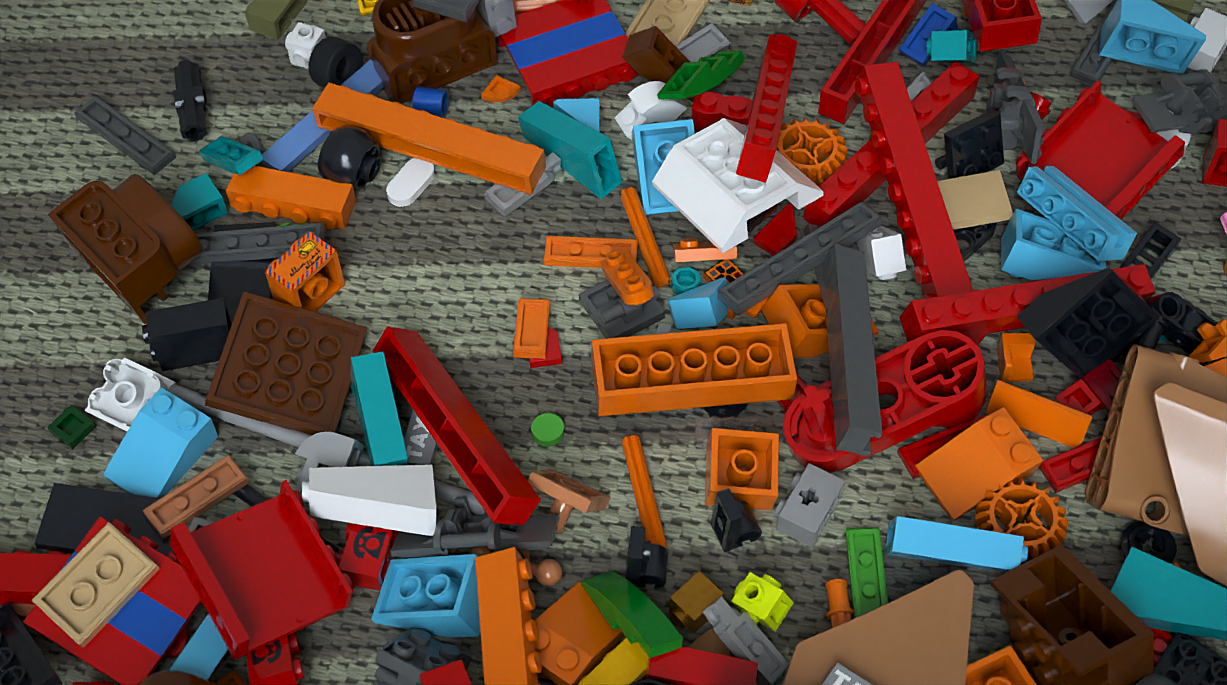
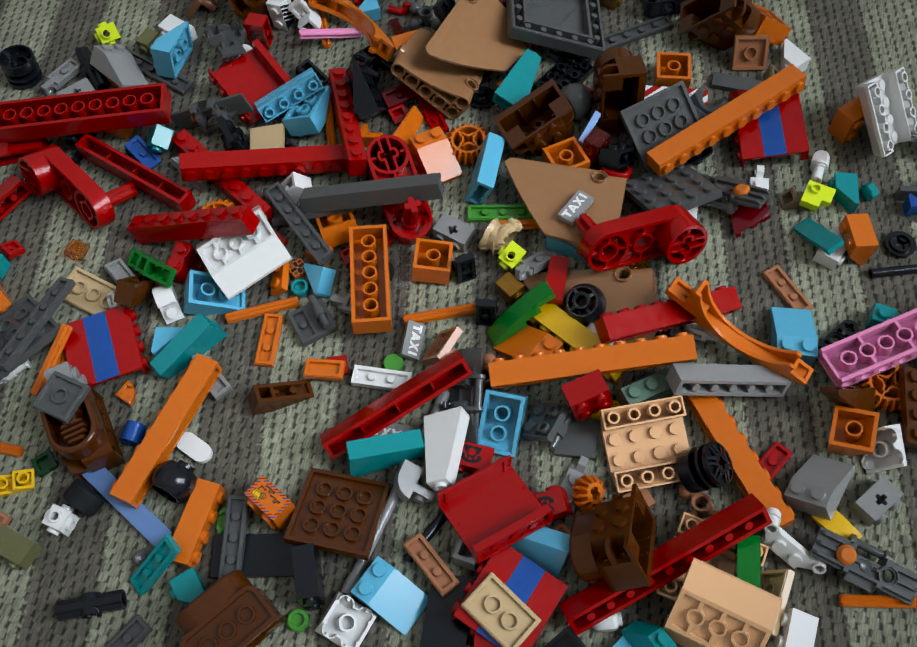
camera: 85 degrees left, 5 degrees up
(136, 341) = (298, 620): none -> bright green tile
(488, 274) = (275, 396): none -> reddish brown slope
(518, 410) = (378, 377): none -> white plate
(588, 453) = (412, 340): none -> light grey tile
(627, 278) = (292, 318): orange plate -> none
(803, 574) = (499, 234): none -> tan piece

